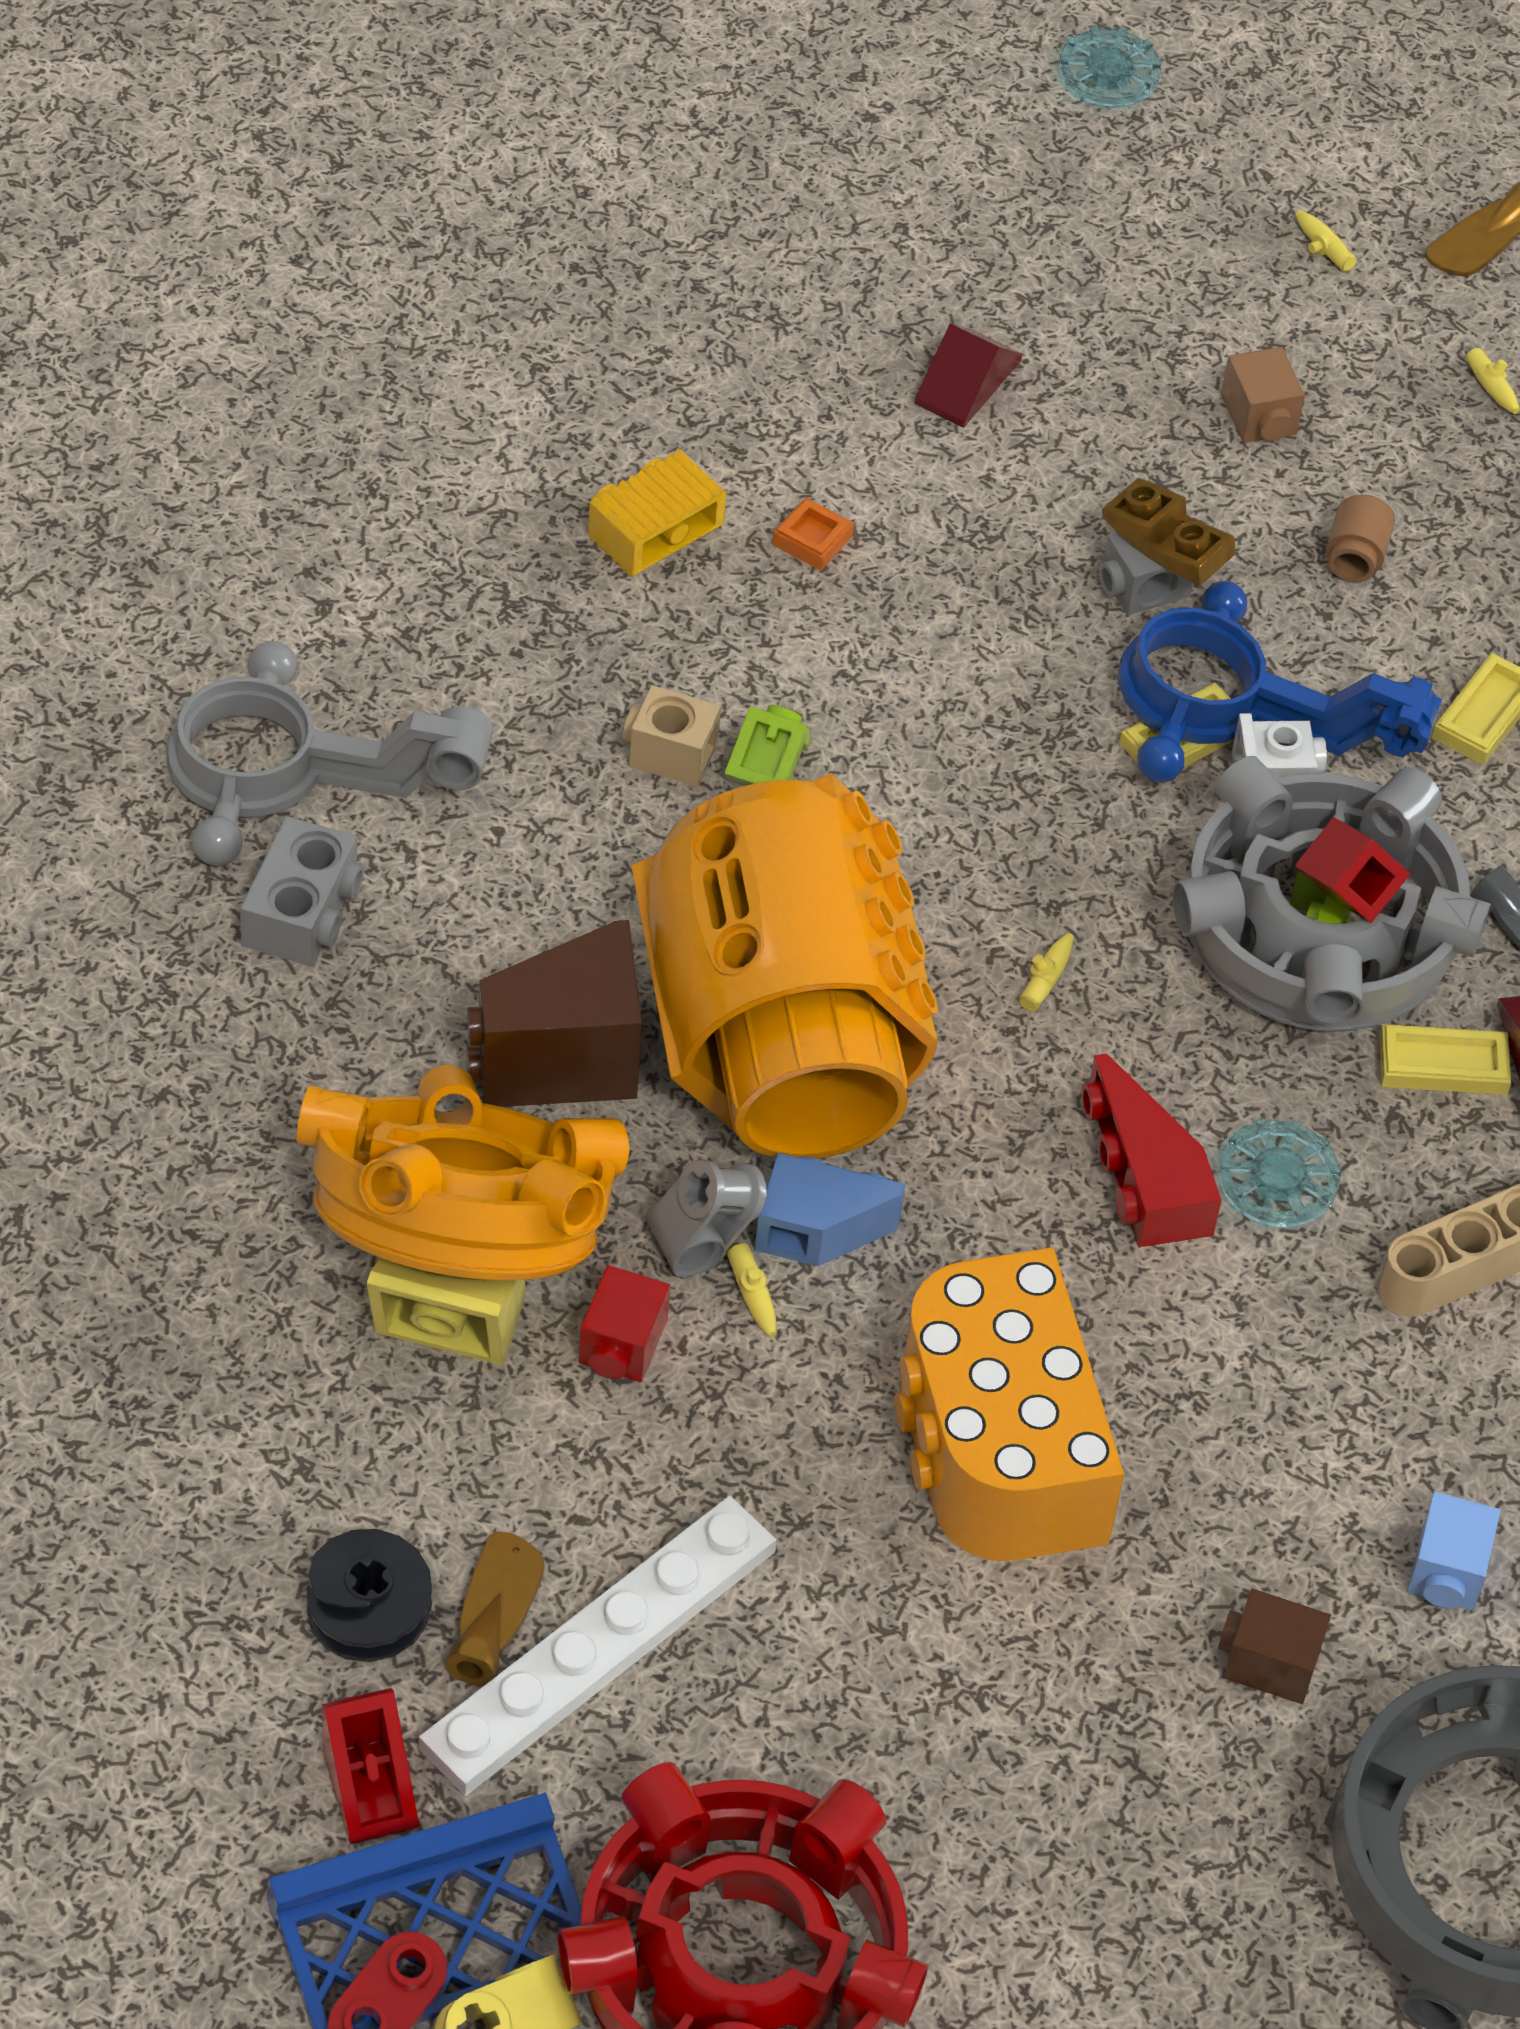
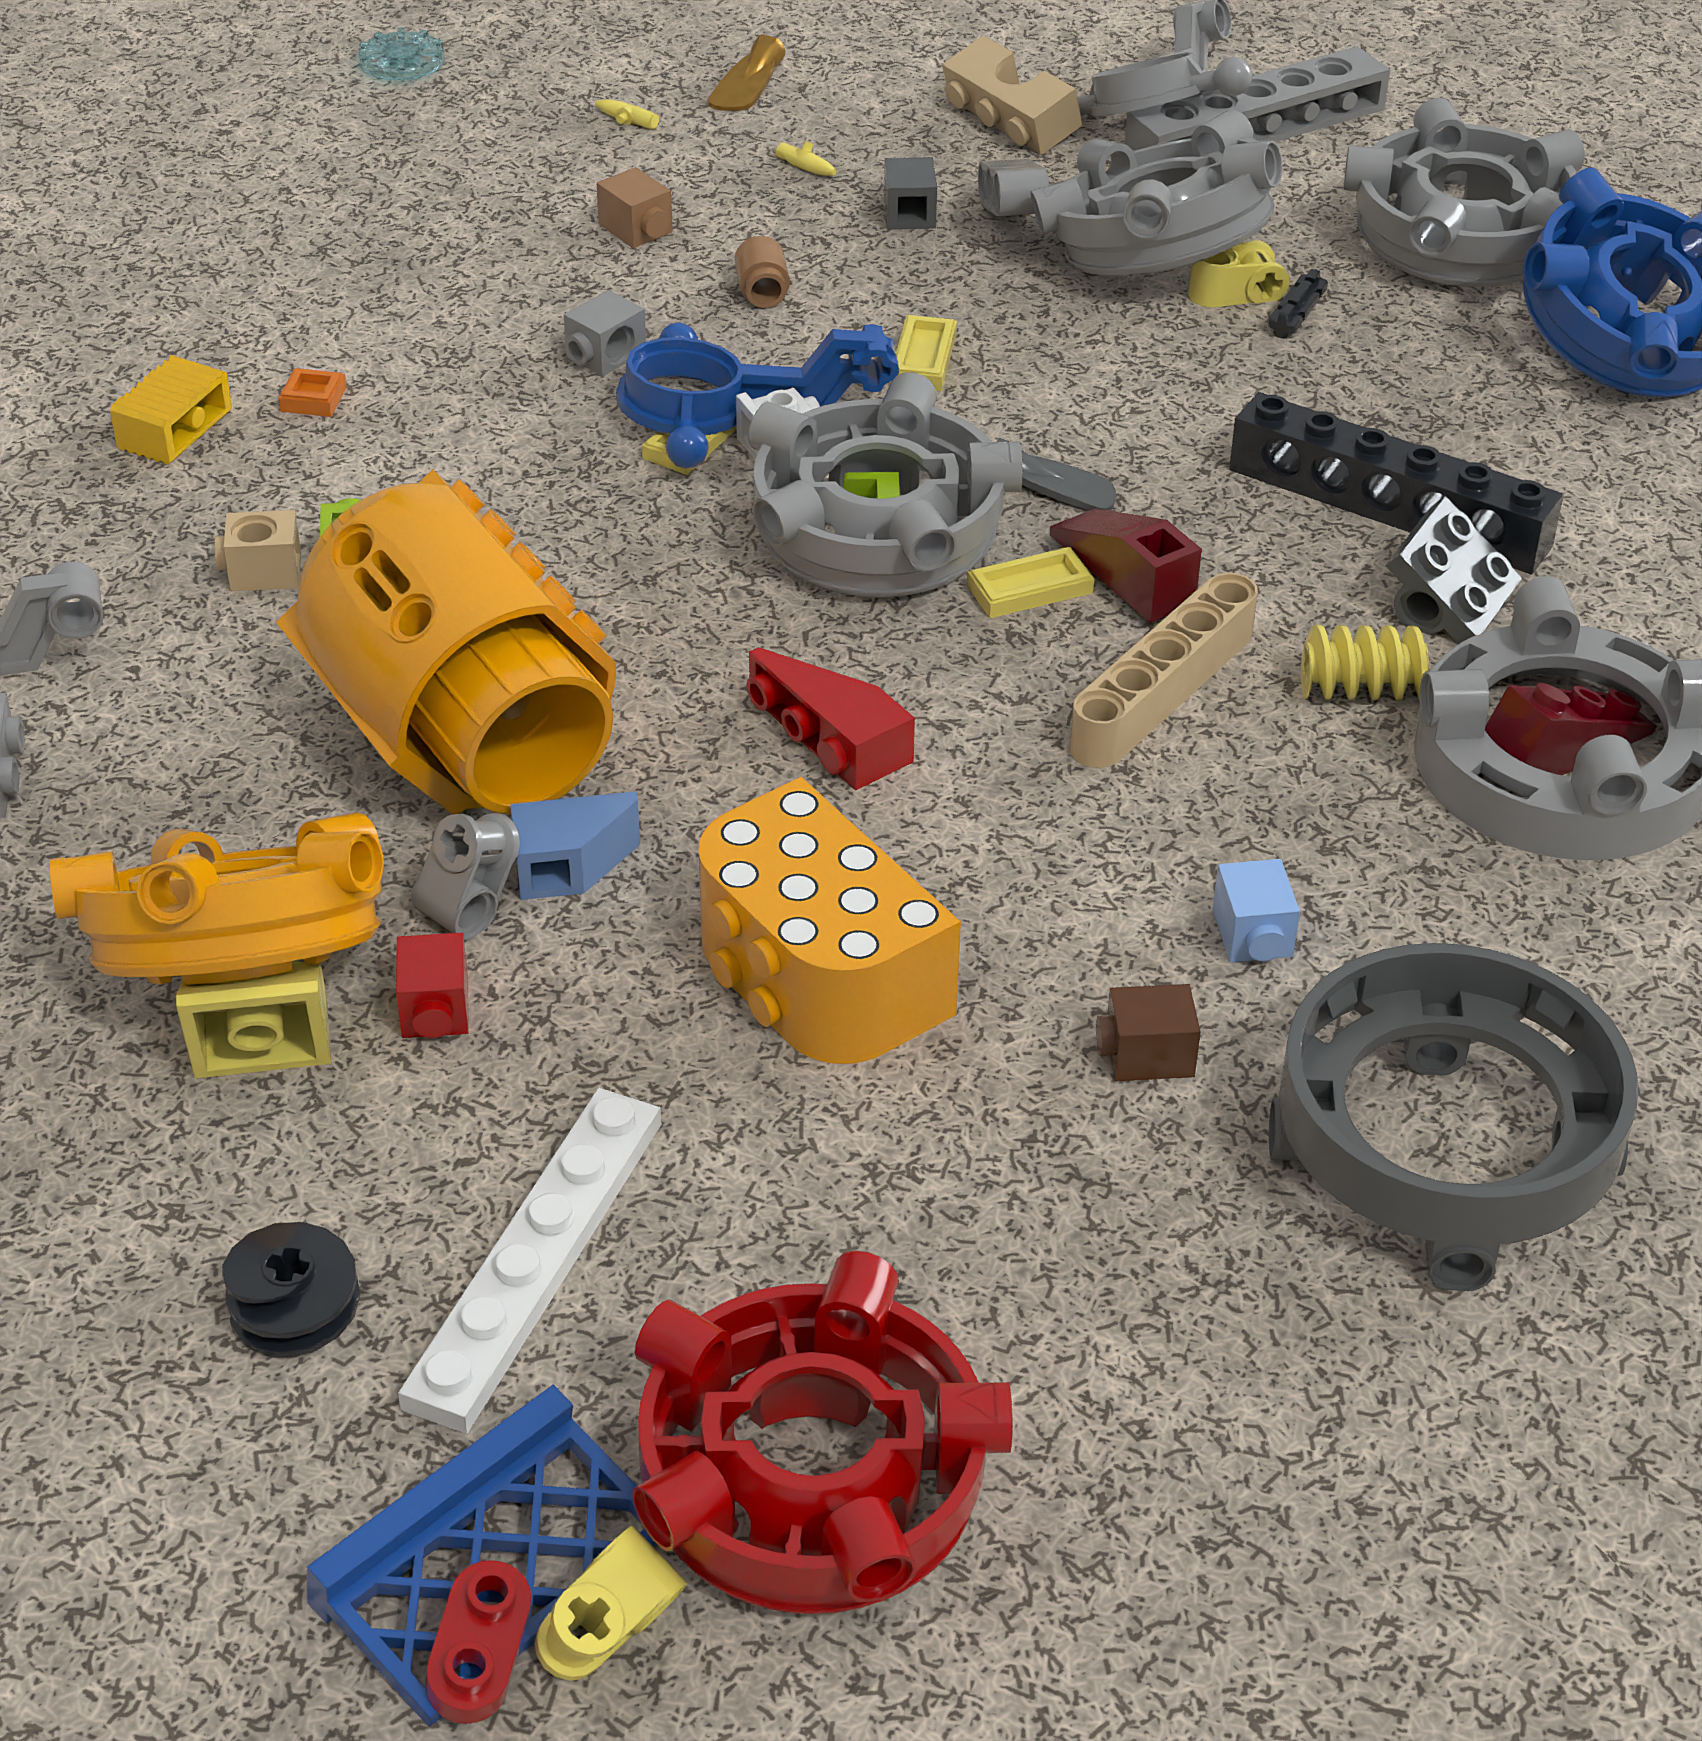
camera: 20 degrees left, 10 degrees down
(369, 1765) = (358, 1431): red slope -> none
(494, 1606) = (419, 1261): pearl gold piece -> none
(560, 1025) = (264, 765): reddish brown slope -> none
(753, 1287) = (533, 922): light yellow helmet -> none
(965, 374) = (386, 255): dark red slope -> none
(1046, 972) = (669, 623): light yellow helmet -> none
(1159, 527) = (602, 293): pearl gold slope -> none
(1279, 1173) = (947, 698): clear light blue wheel -> none
(1352, 869) = (895, 449): red brick -> none

